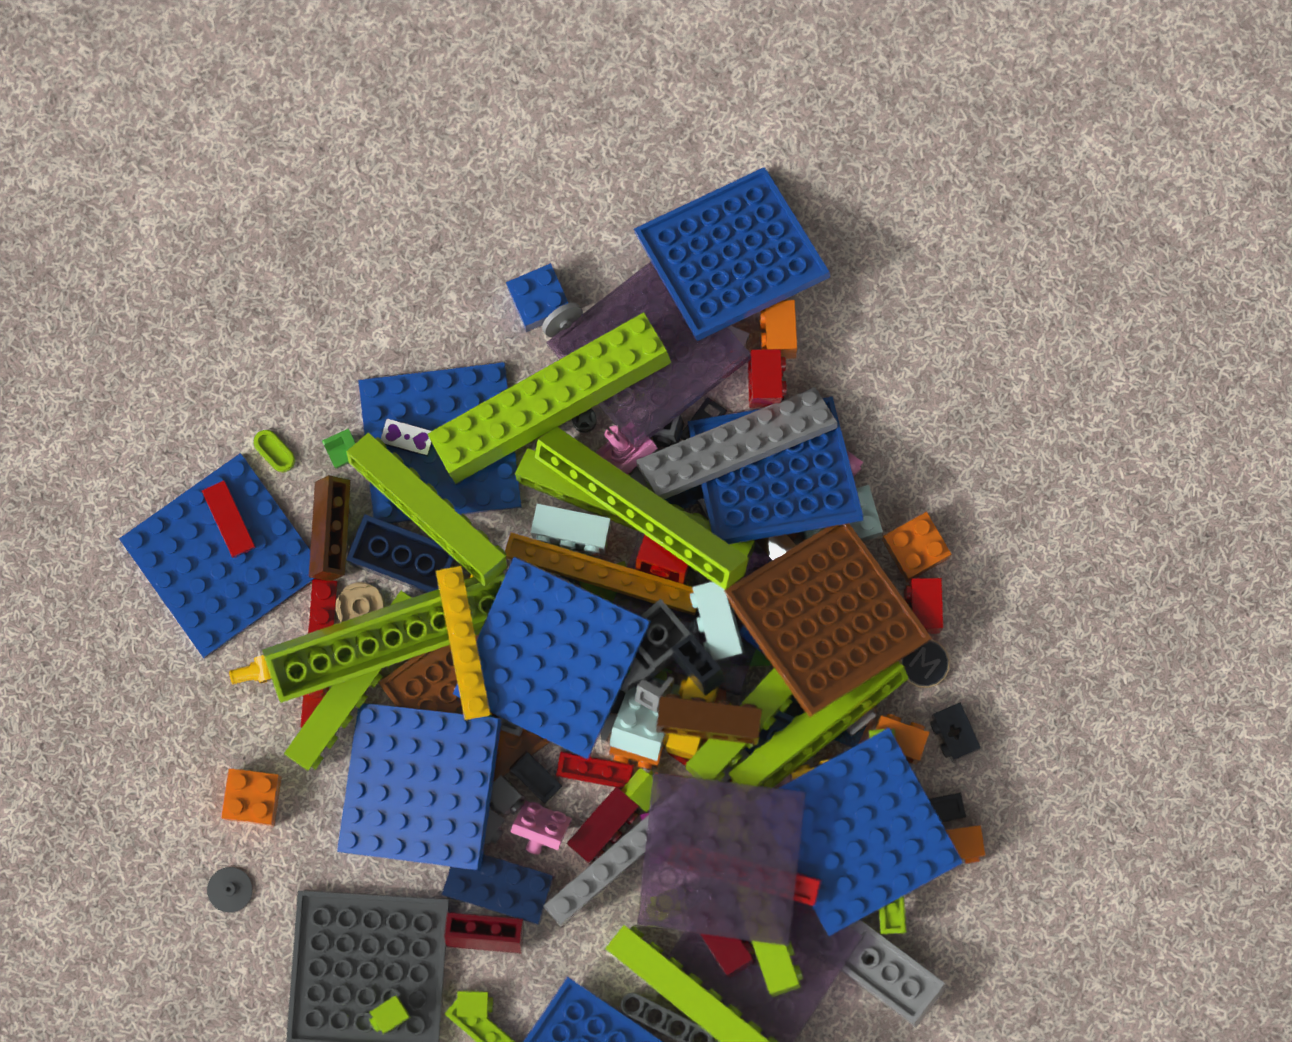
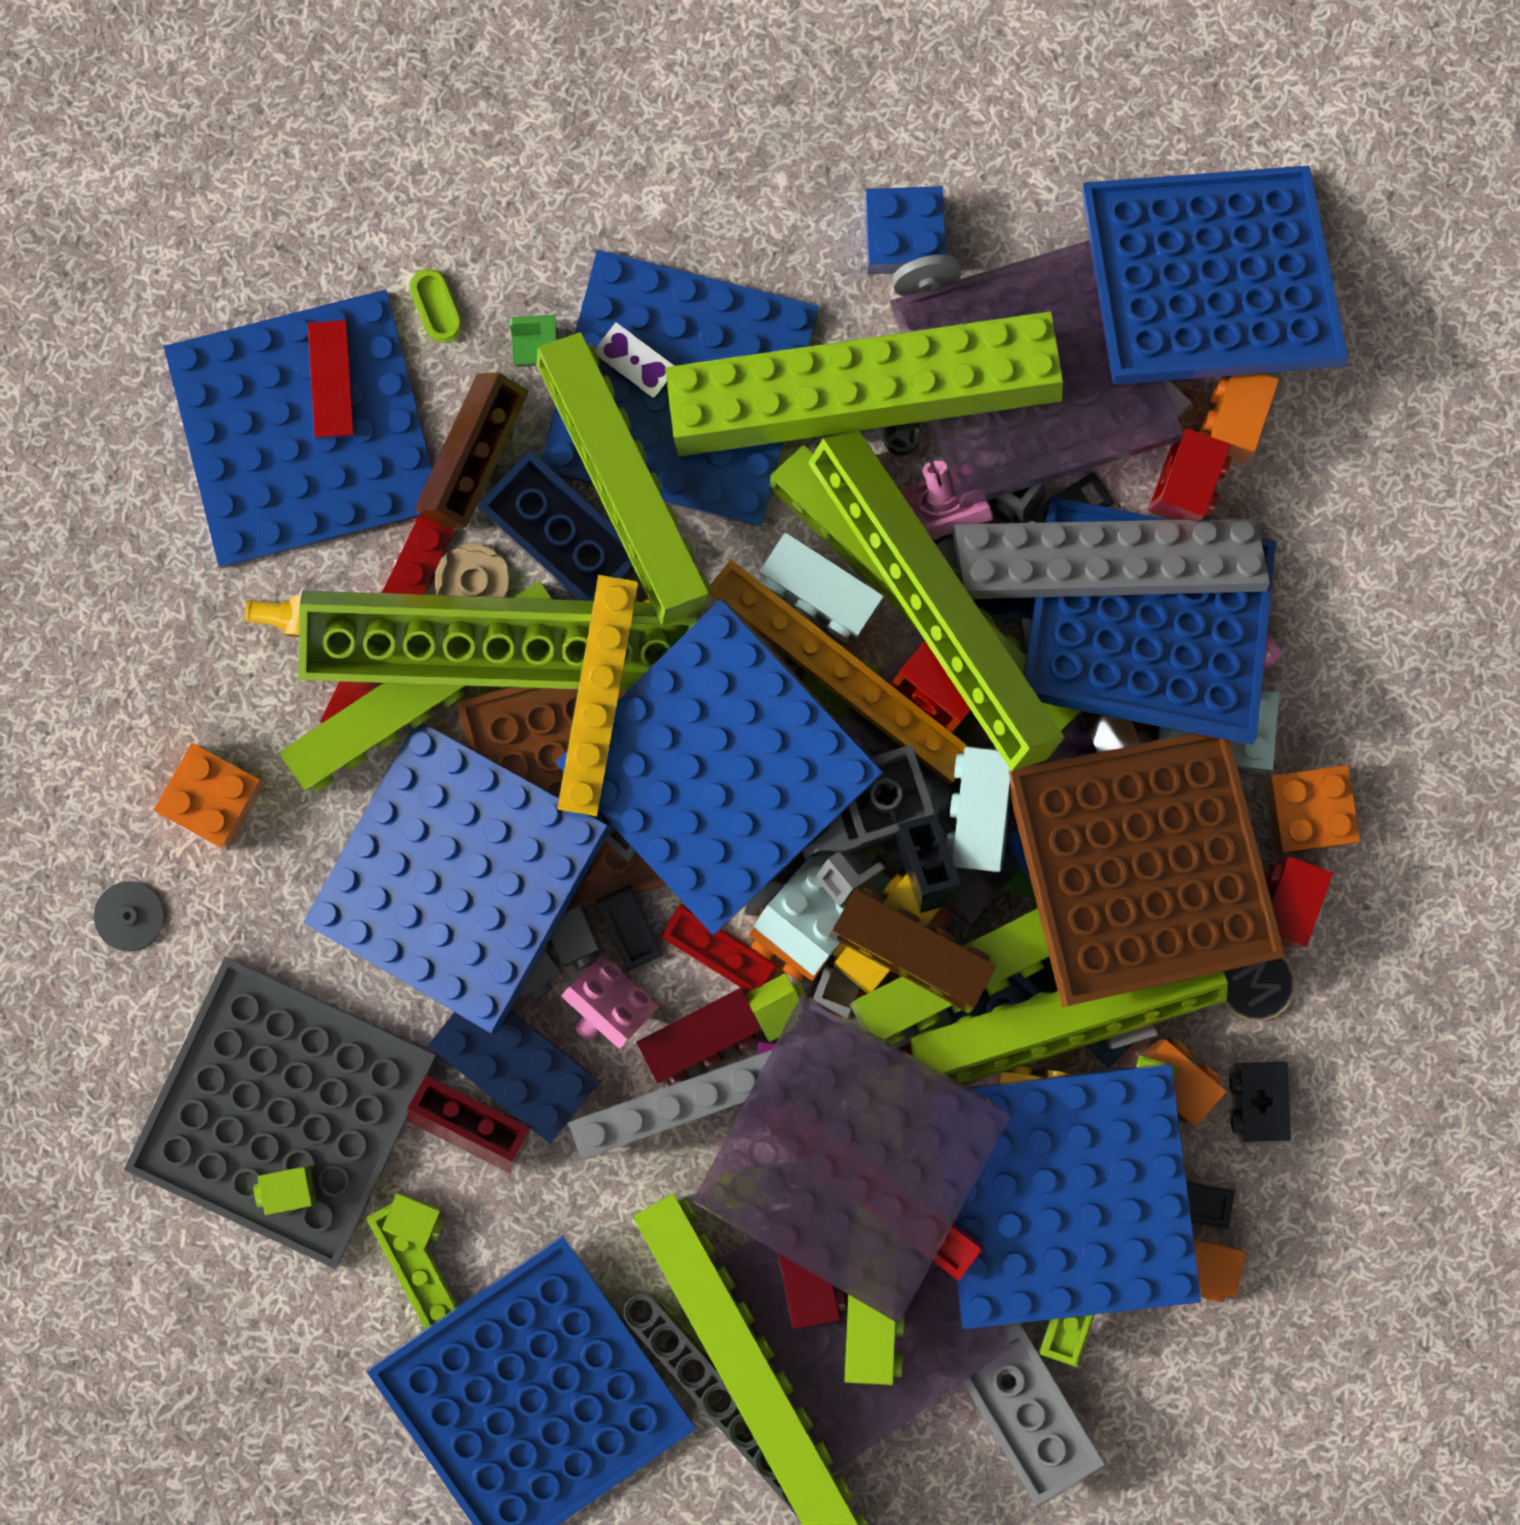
camera: 15 degrees right, 5 degrees up
(674, 764) = (836, 991): none -> light grey panel

